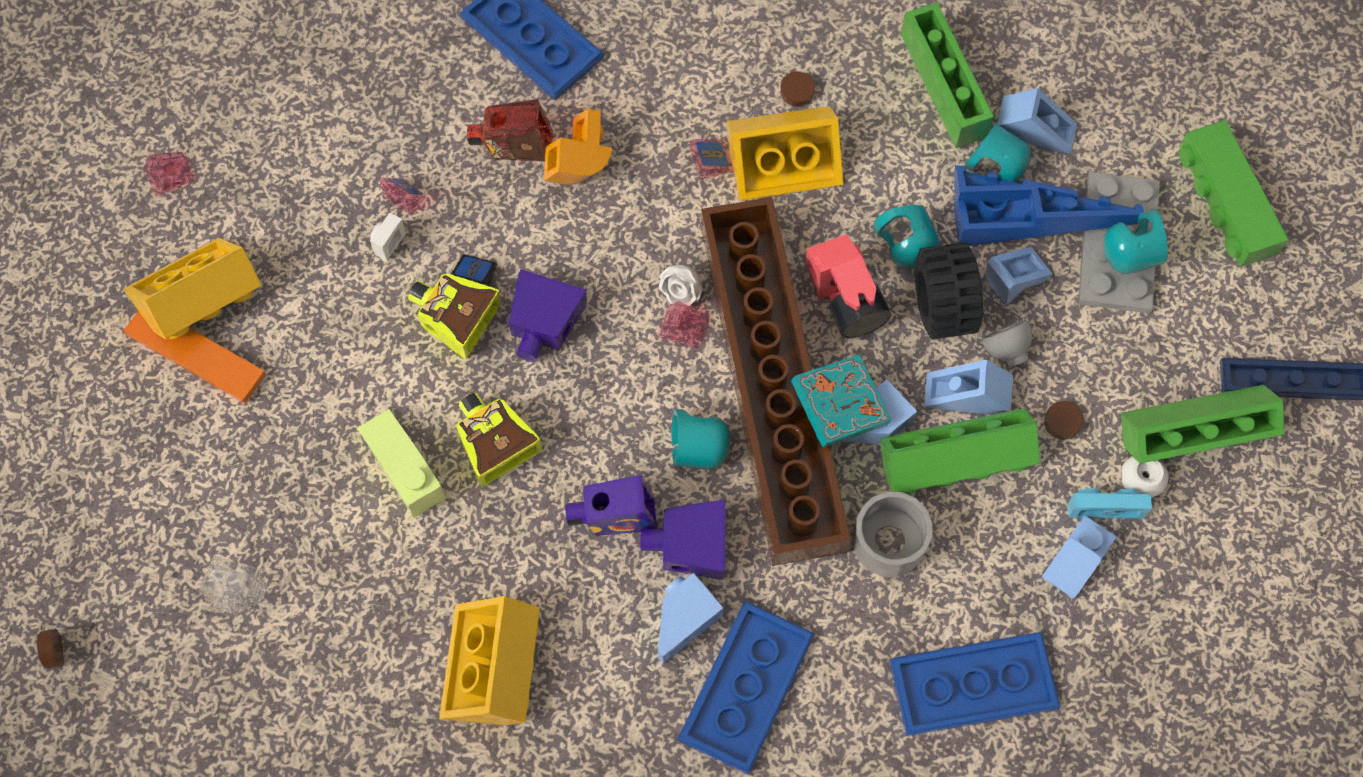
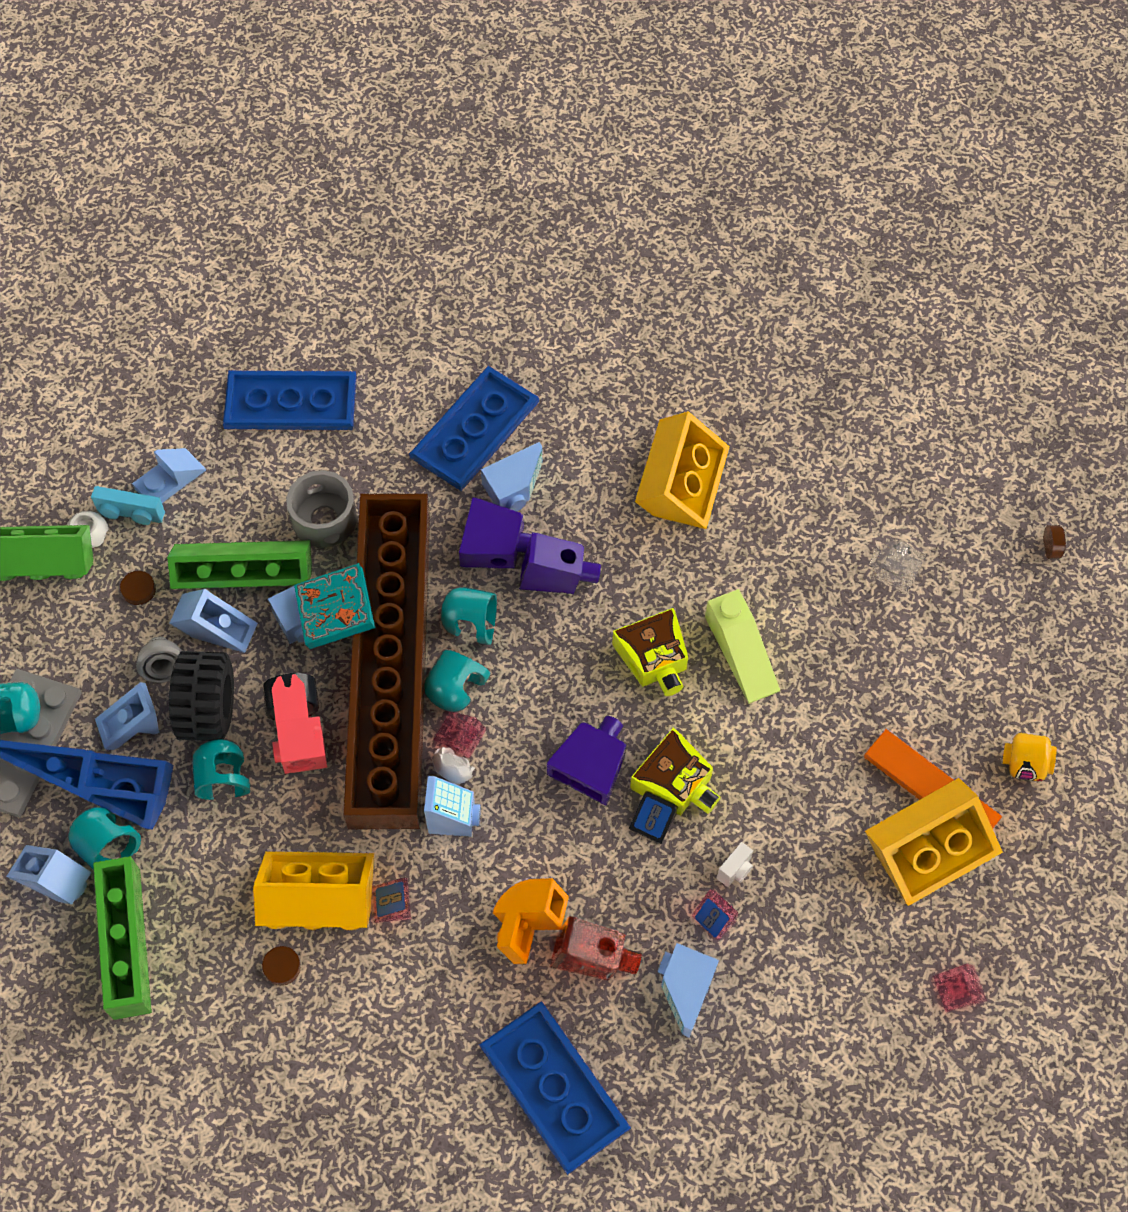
camera: 170 degrees left, 5 degrees down
(91, 390) = (1030, 757): none -> yellow head
(422, 127) = (686, 983): none -> light blue slope
(673, 233) = (450, 808): none -> slope
(701, 356) = (446, 680): none -> teal helmet

